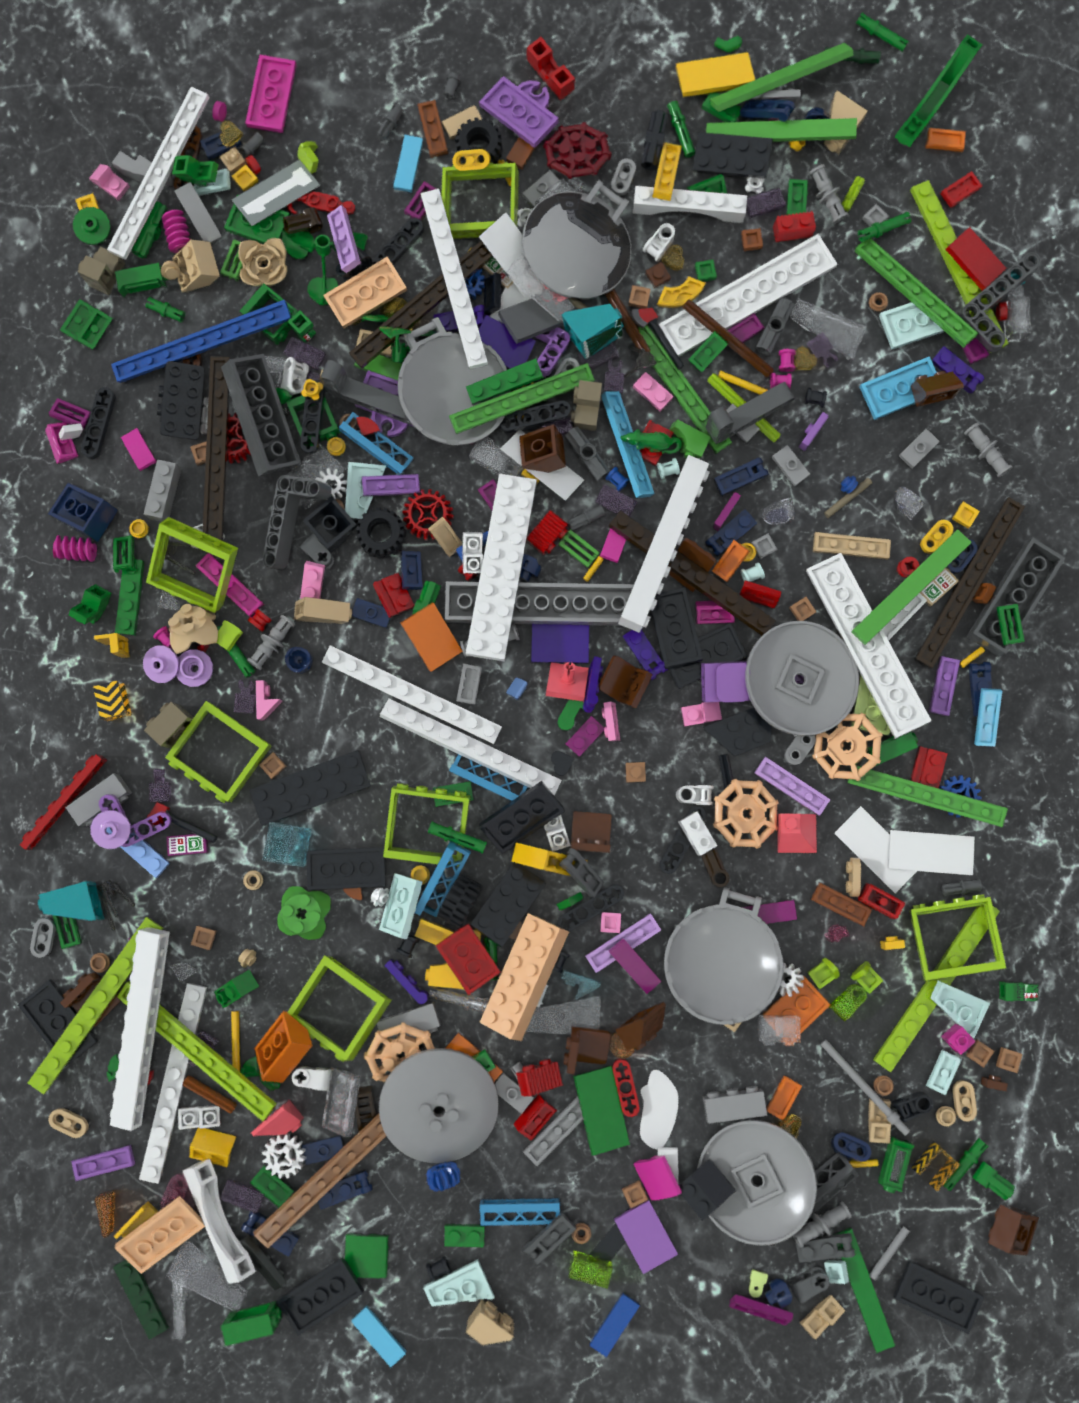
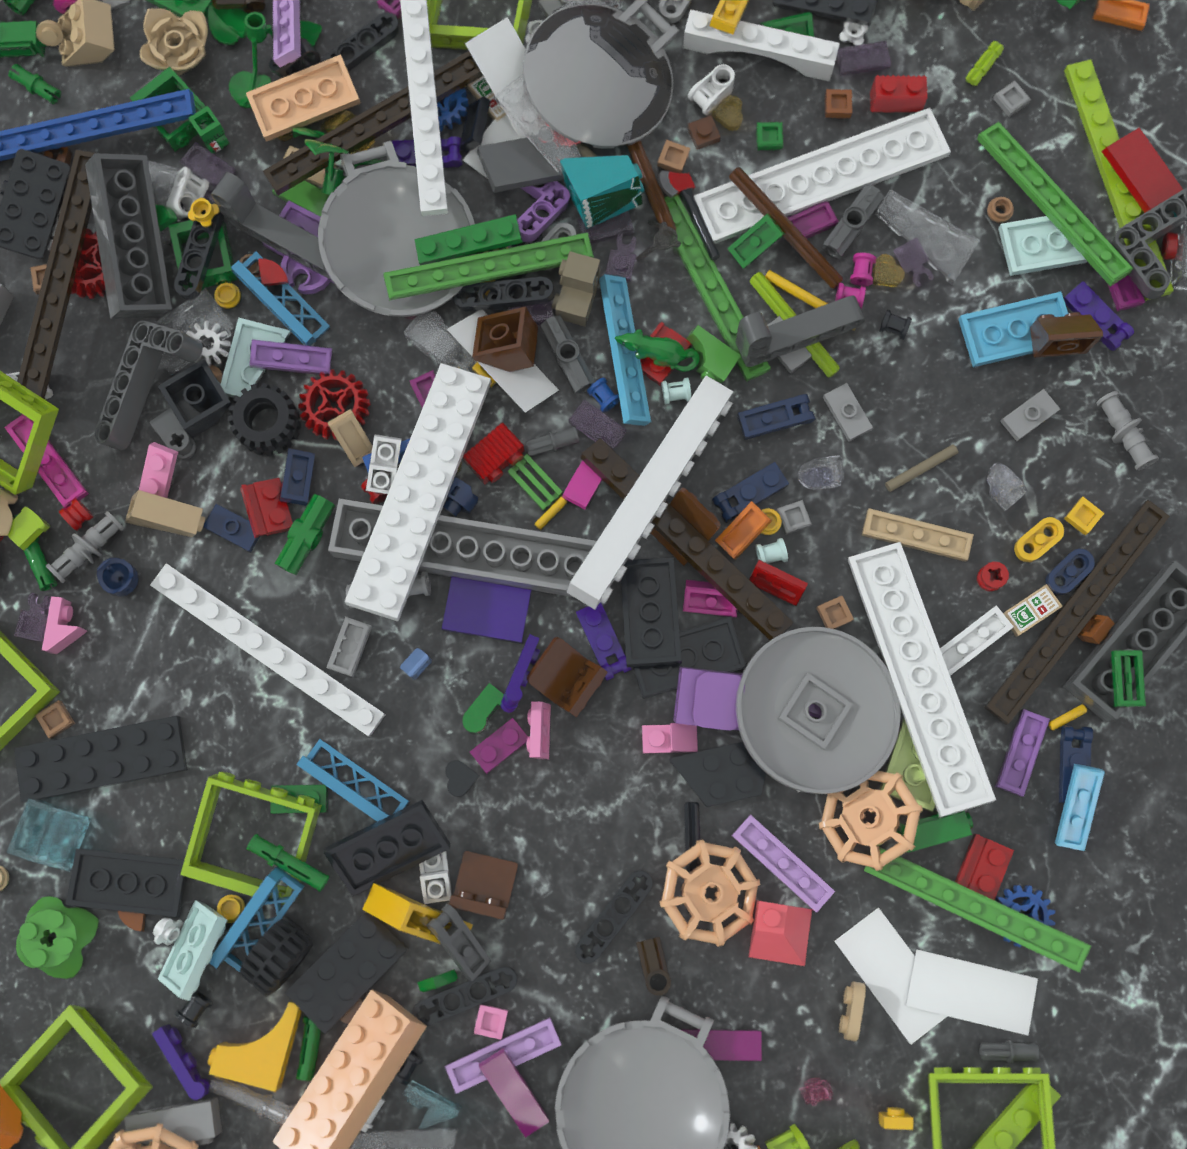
camera: 10 degrees right, 5 degrees down
(230, 274) = (134, 50): bright green tile -> none
(431, 637) = (306, 572): orange tile -> none
(432, 931) = (237, 998): yellow panel -> none
(467, 746) = (332, 735): white plate -> none
(468, 958) = (272, 1044): red tile -> none
(498, 337) = (473, 185): dark purple tile -> none
(567, 681) = (485, 664): coral tile -> none
(635, 772) = (562, 808): medium nougat plate -> none
(652, 391) = (672, 285): bright pink plate -> none
(677, 296) = (721, 163): yellow tile -> none
(697, 833) = (634, 911): white brick -> none
(698, 795) = (645, 854): white piece -> none
(726, 511) = (748, 461): magenta tile -> none
(796, 196) = (908, 54): green plate -> none
(800, 747) = (803, 809): light grey plate -> none
(812, 431) = (884, 369): medium lavender plate -> none
(828, 193) = (950, 58): light grey piece -> none
(841, 904) = (830, 1048): dark orange tile -> none
(849, 484) = (925, 449): blue plate -> none
(877, 229) = (1012, 113): green pin -> none
(881, 901) = (887, 1054): red brick -> none
(911, 587) = (992, 605): bright green tile -> none
(961, 189) = (1134, 78): red plate -> none

